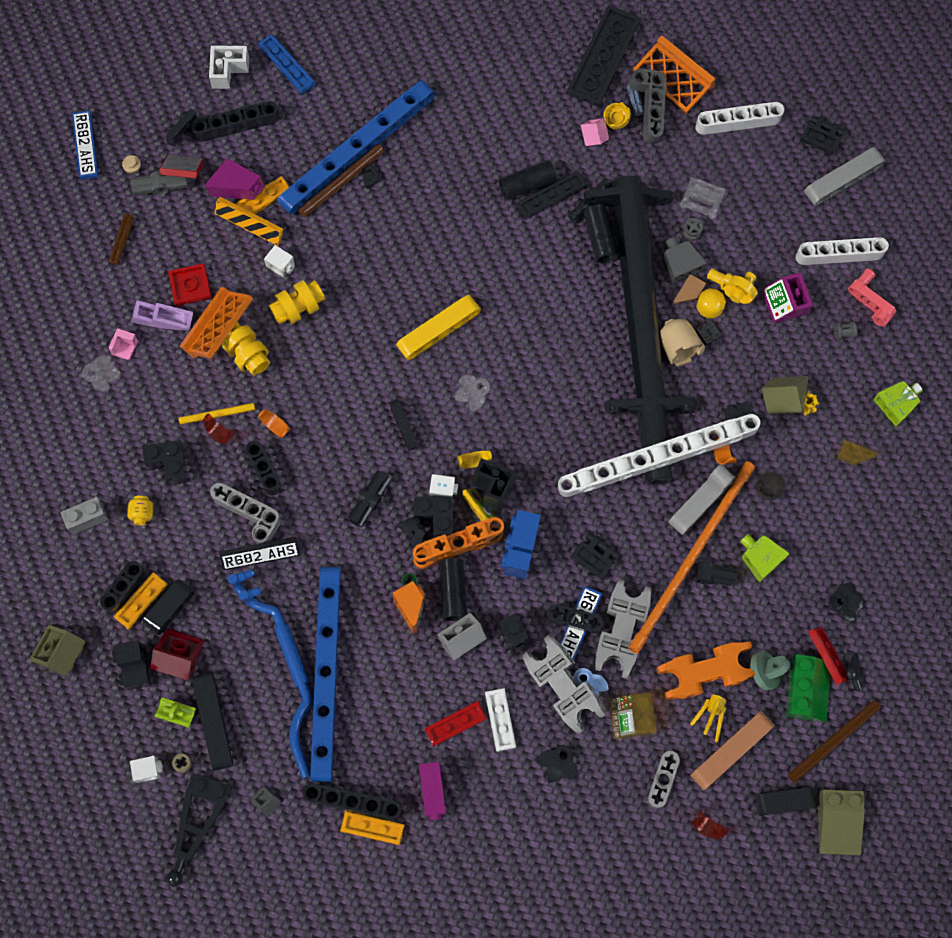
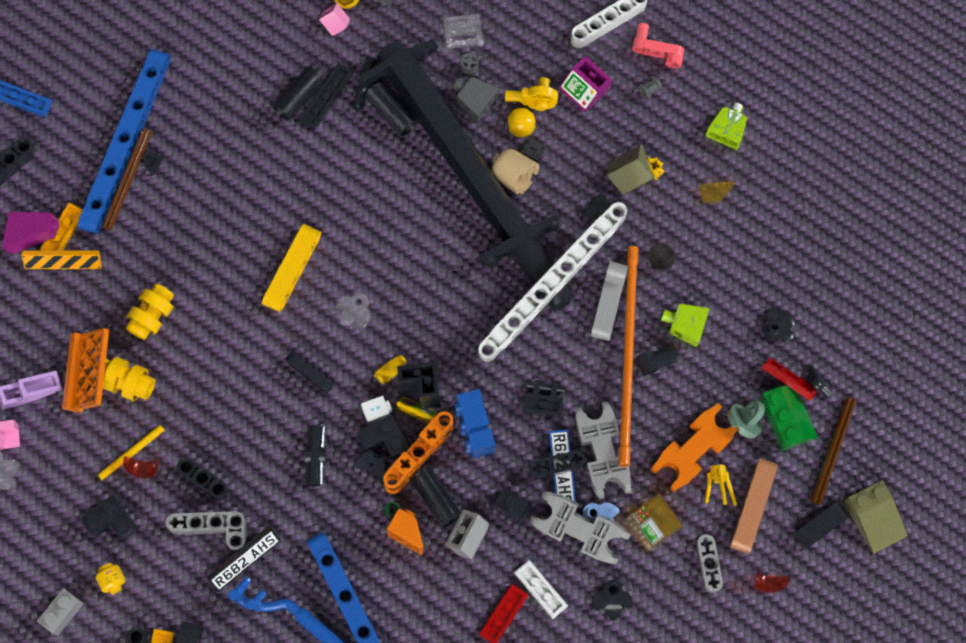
camera: 30 degrees left, 0 degrees up
(189, 285) = (38, 347): red tile -> none
(274, 423) = (190, 433): orange helmet -> none
(279, 261) = (112, 282): white brick -> none
(690, 290) = (497, 120): medium nougat tile -> none
(723, 455) = (605, 252): orange helmet -> none

